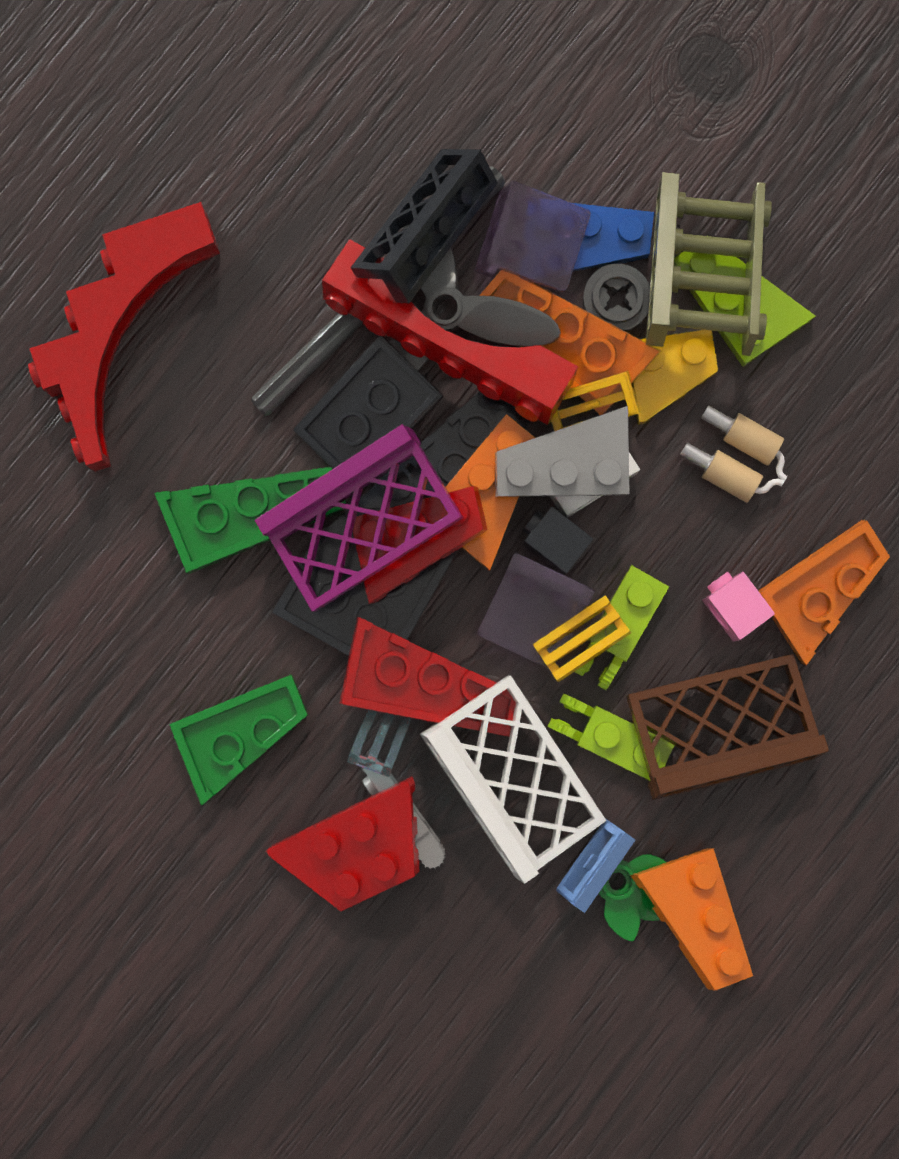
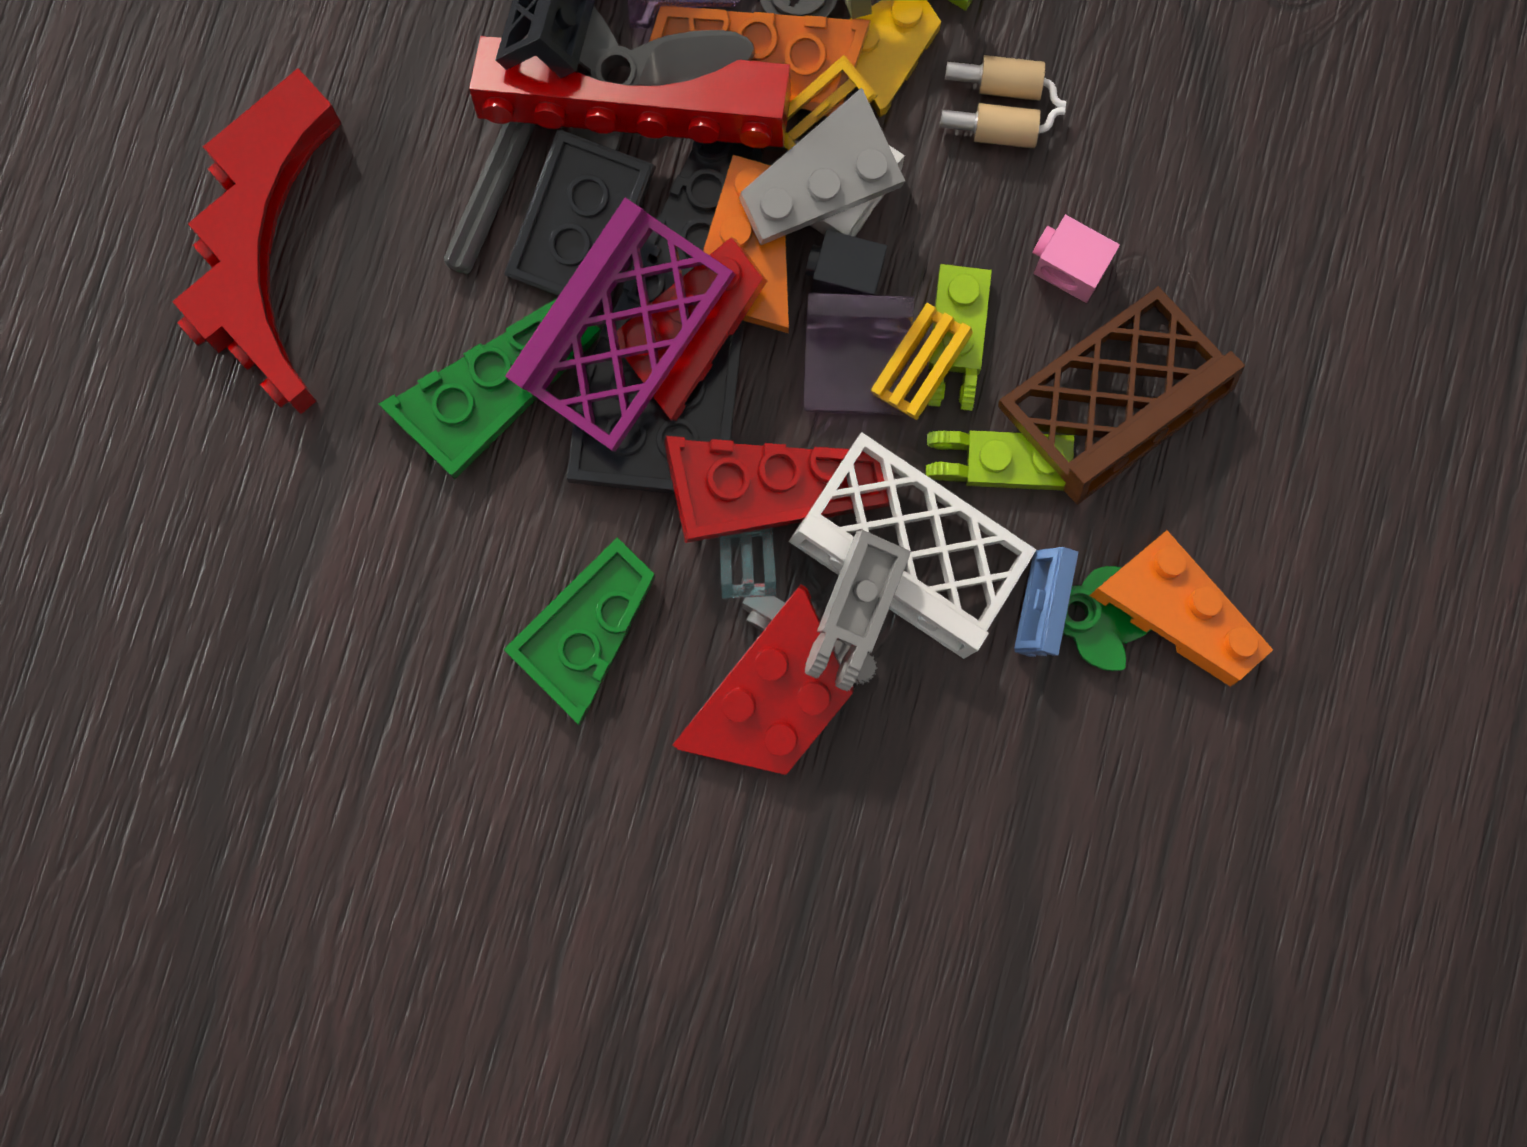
camera: 25 degrees left, 5 degrees down
(445, 816) = (858, 605): none -> light grey hinge
(823, 586) = (1158, 202): orange wing -> none

